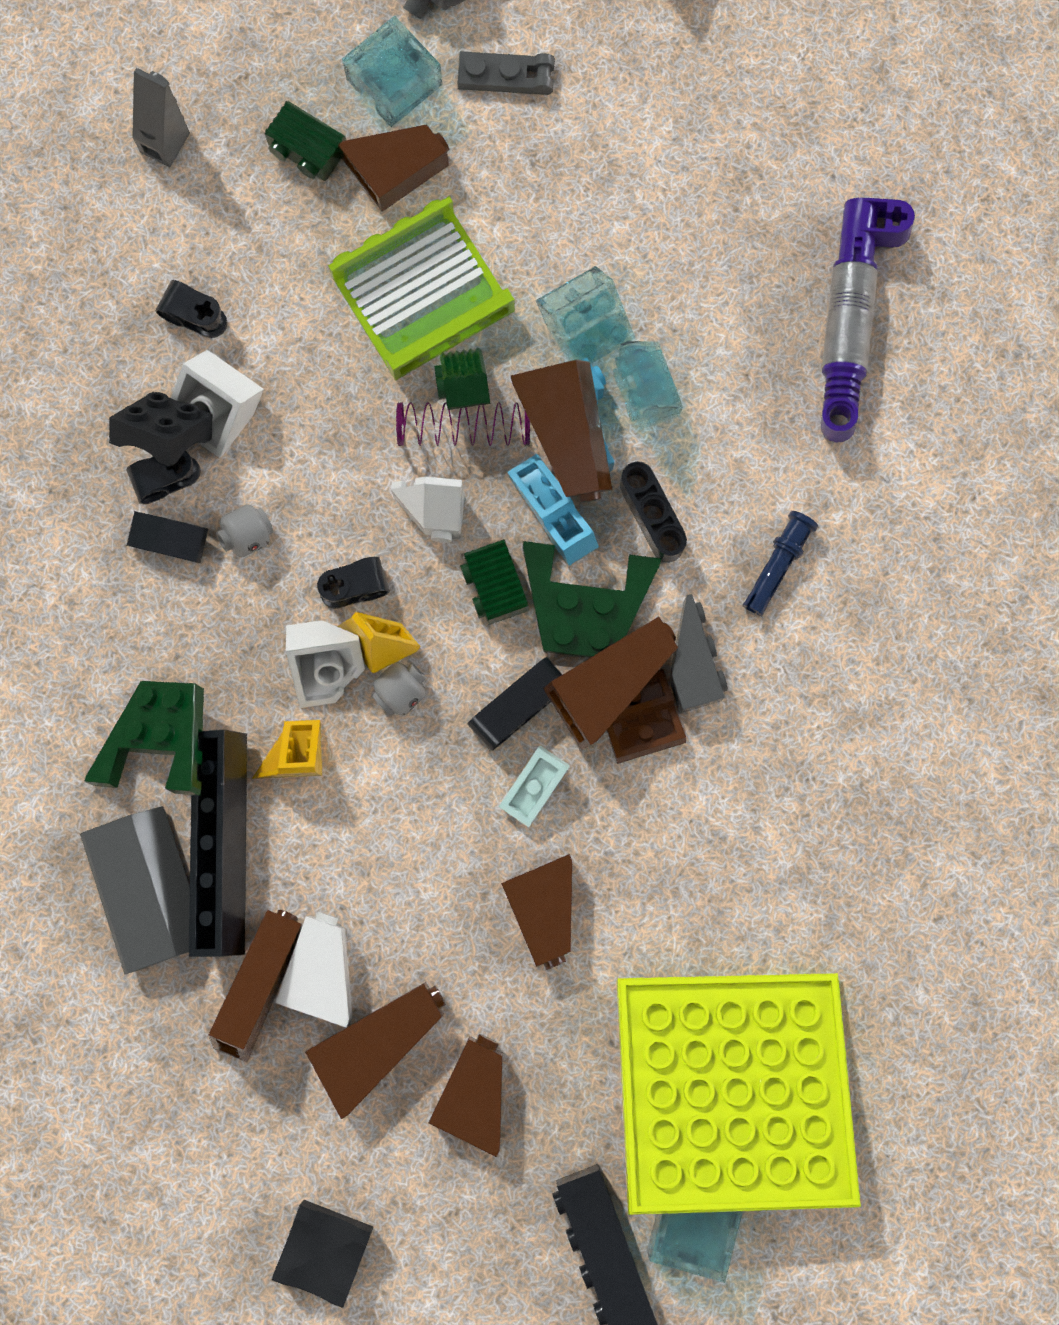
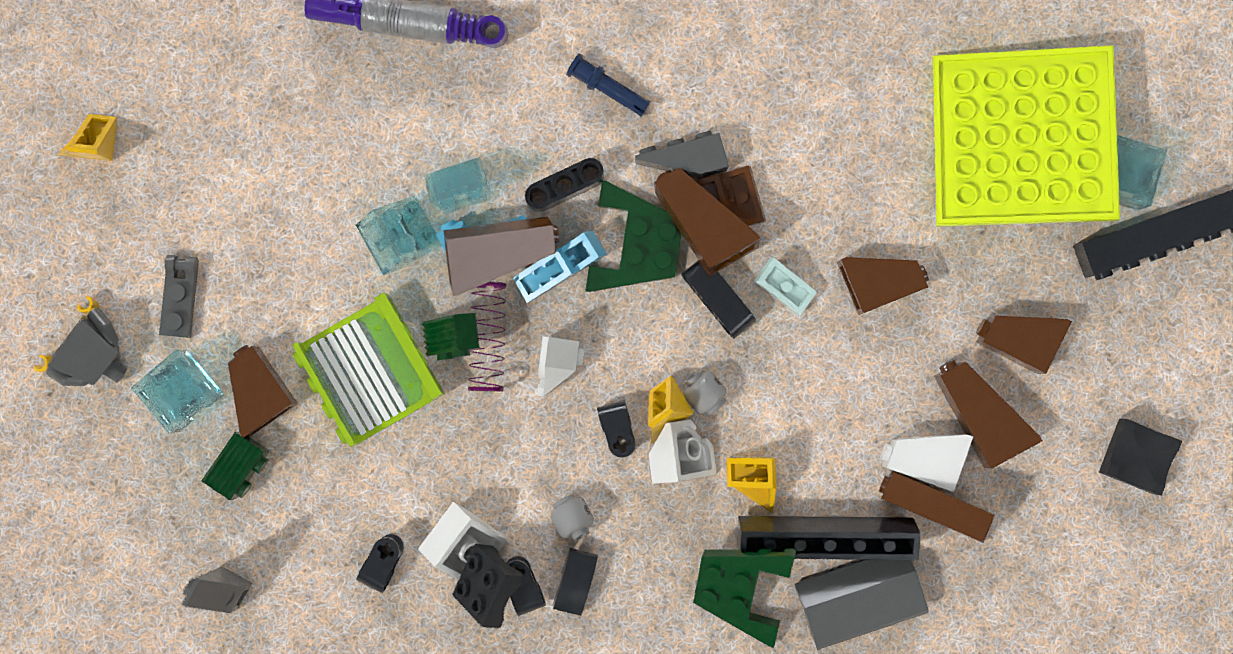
camera: 90 degrees left, 5 degrees up
(495, 582) = (619, 314): dark green brick -> none

